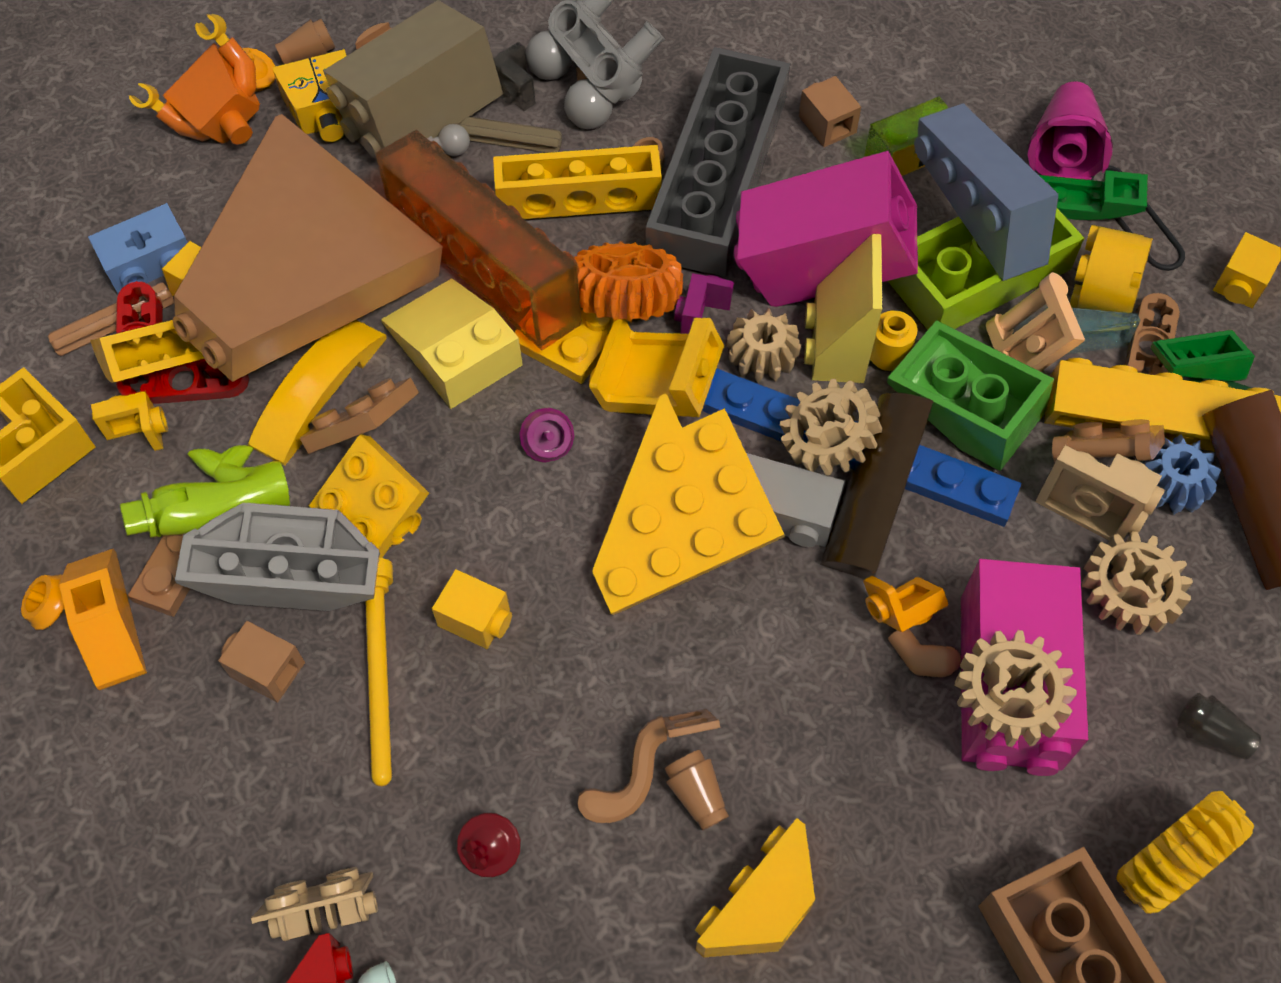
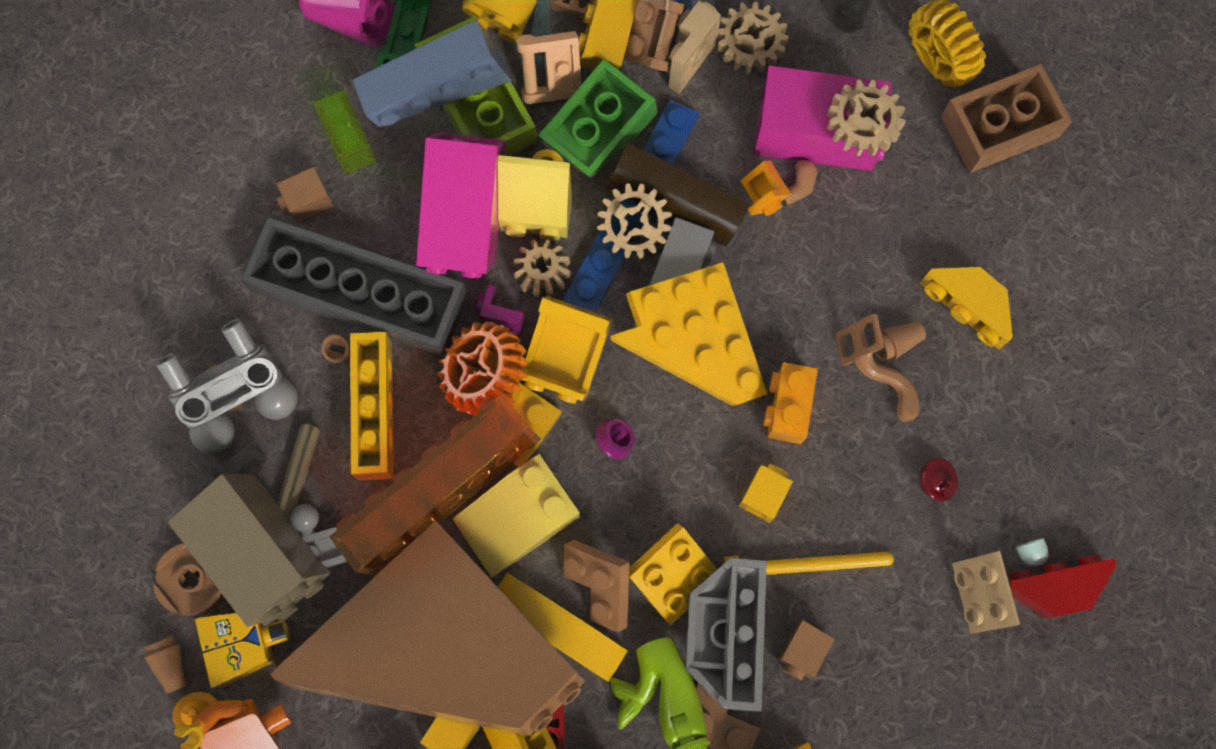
camera: 90 degrees left, 15 degrees up
(595, 637) = (792, 403): none -> light orange brick

